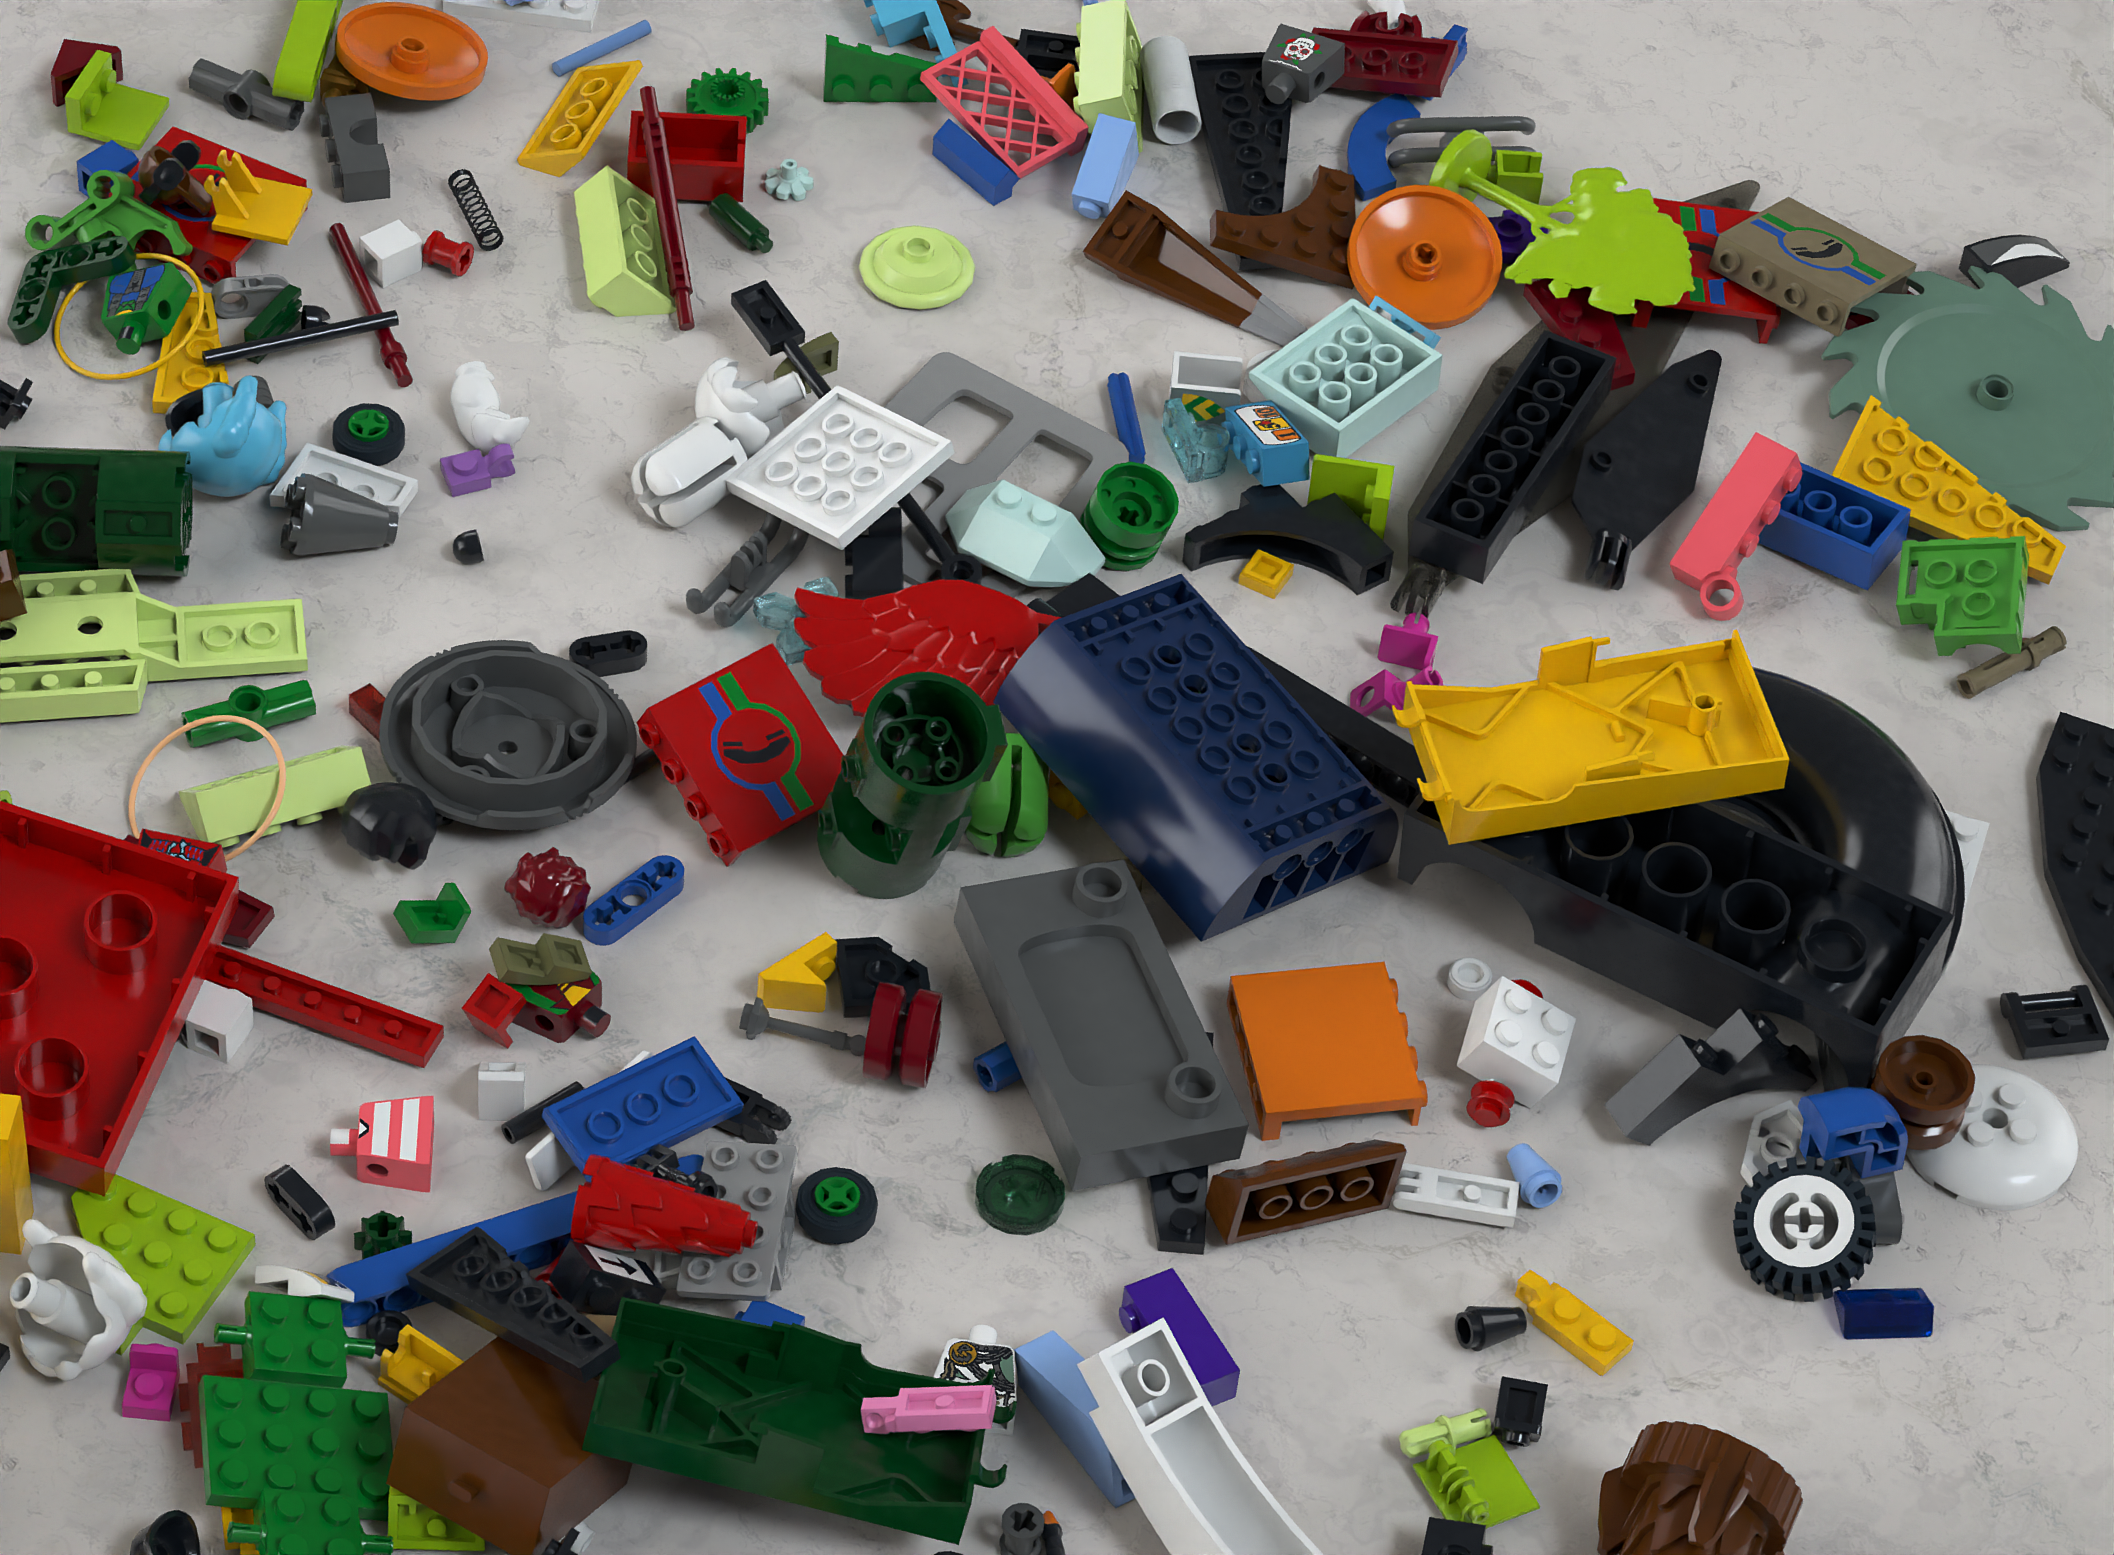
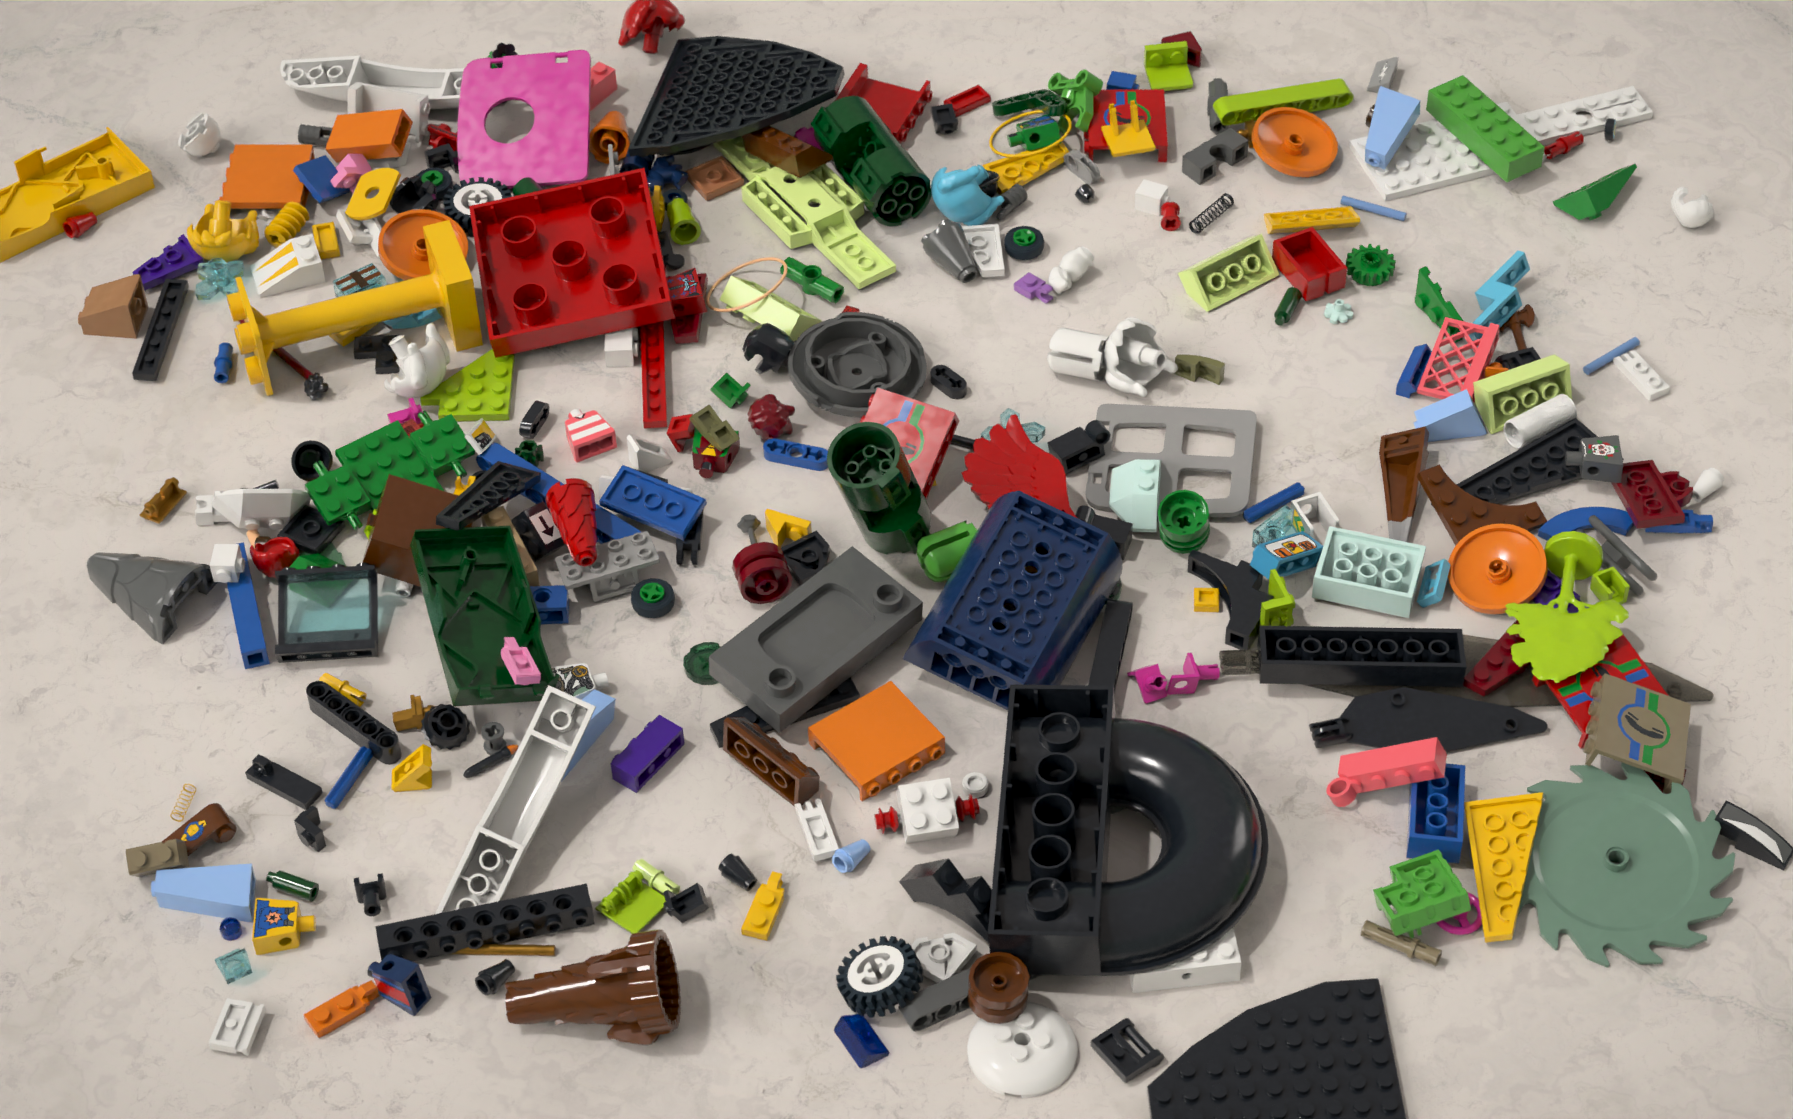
camera: 70 degrees right, 0 degrees up
(167, 178) = (1115, 92): cap -> none
(276, 318) = (1070, 180): dark green tile -> none
(300, 338) = (1063, 191): black piece -> none
(391, 350) = (1088, 228): dark red bar -> none
(468, 547) = (979, 307): black hinge -> none
(664, 1165) = (606, 532): black hinge -> none
(667, 208) = (1256, 268): dark red axle -> none
(748, 573) = (1043, 406): dark grey piece -> none
(781, 332) = (1200, 342): black bar -> none
(839, 467) = (1114, 396): white plate -> none
(917, 267) = (1317, 382): yellowish green piece -> none
(1594, 738) = (1106, 733): yellow piece -> none
(1856, 1125) = (945, 960): blue brick -> none

